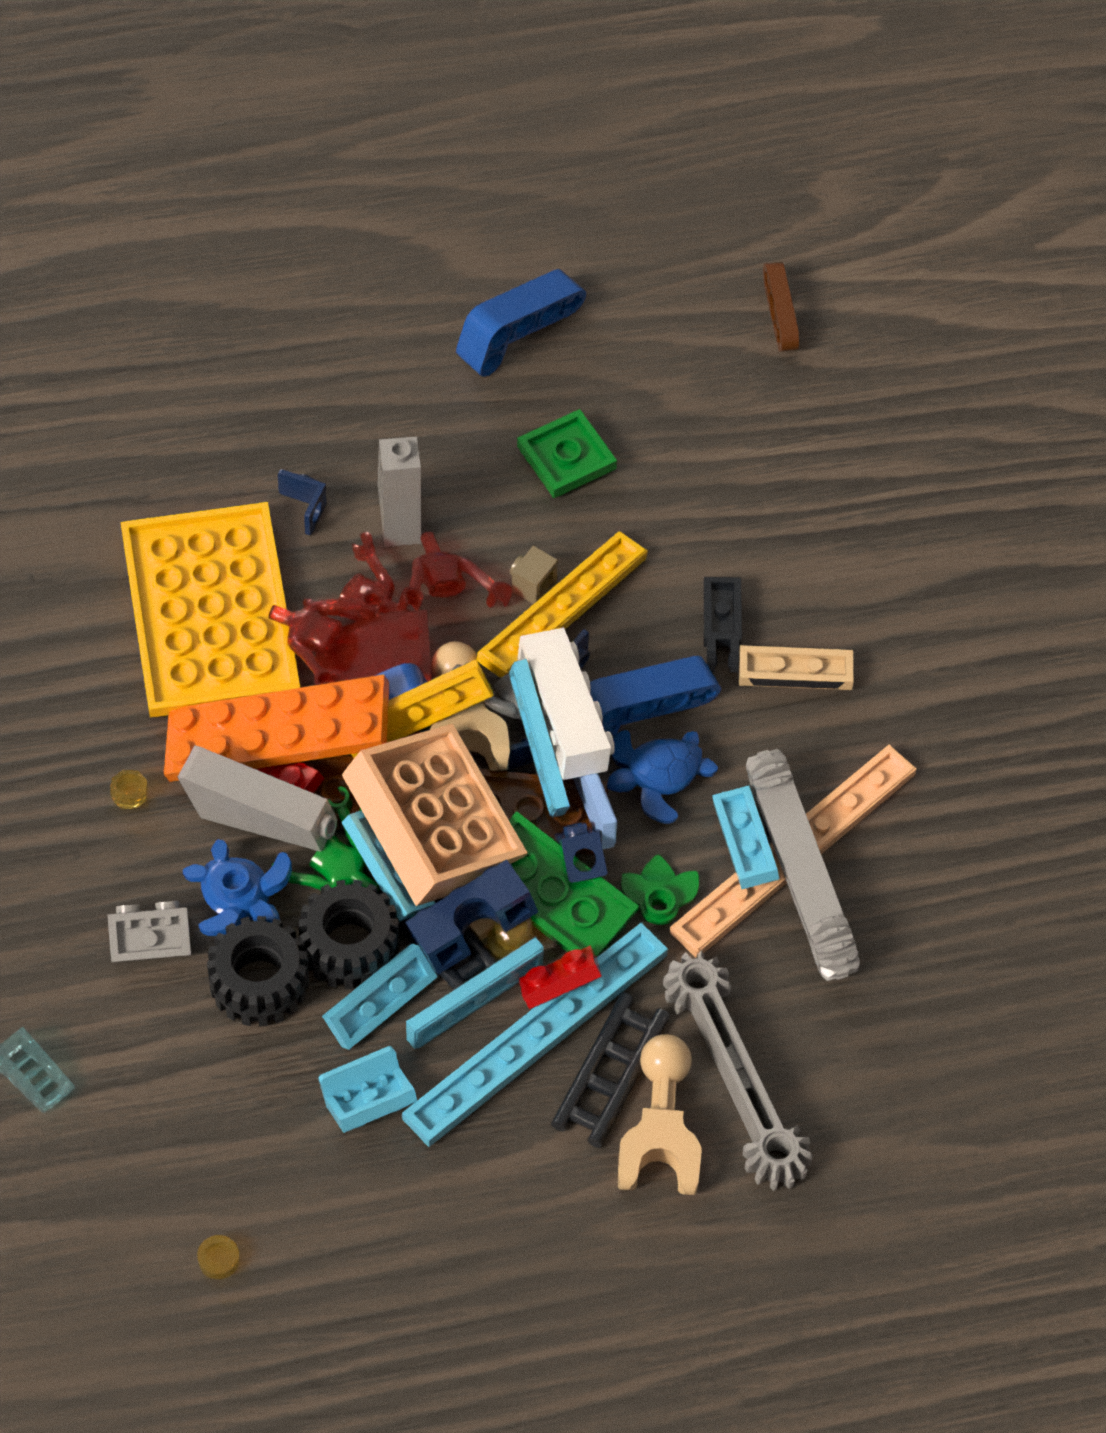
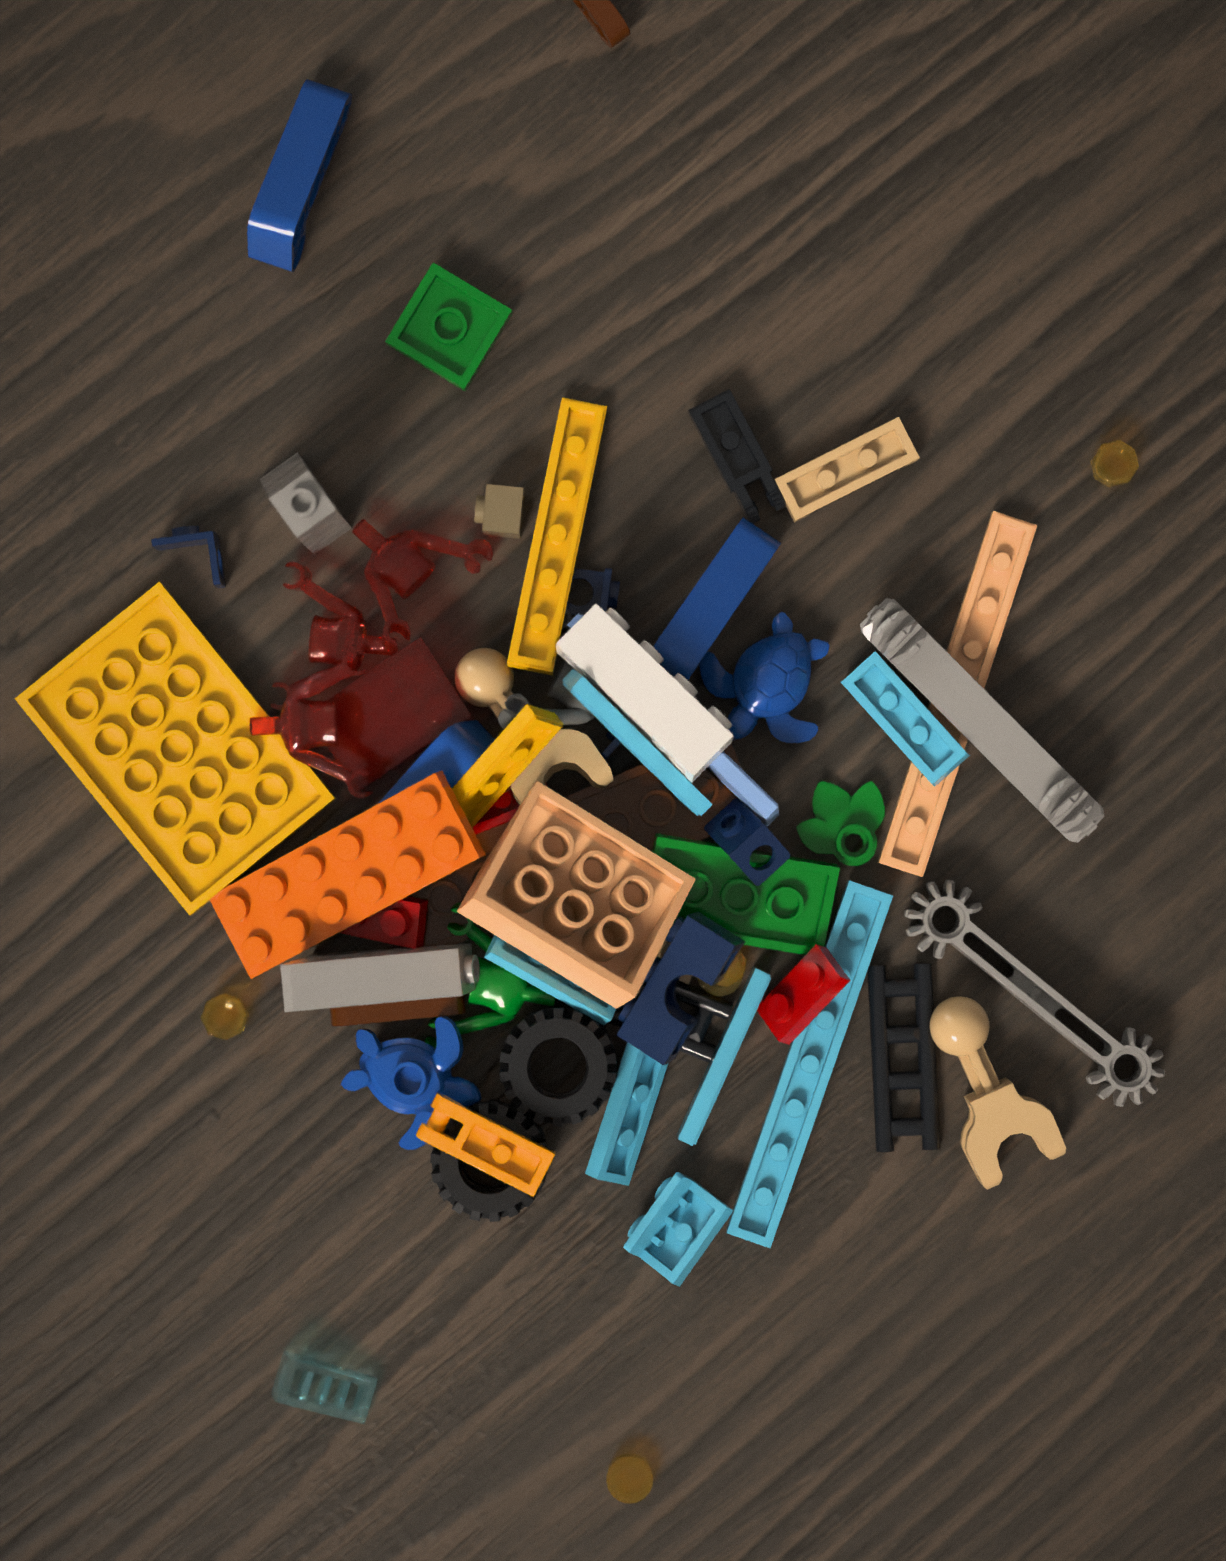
camera: 30 degrees left, 30 degrees up
(149, 933) = (348, 1171): light grey bracket -> none
(254, 841) = (397, 1011): none -> reddish brown beam
(264, 938) = (487, 1145): none -> light orange plate
(995, 757) = (1114, 463): none -> clear yellow tile

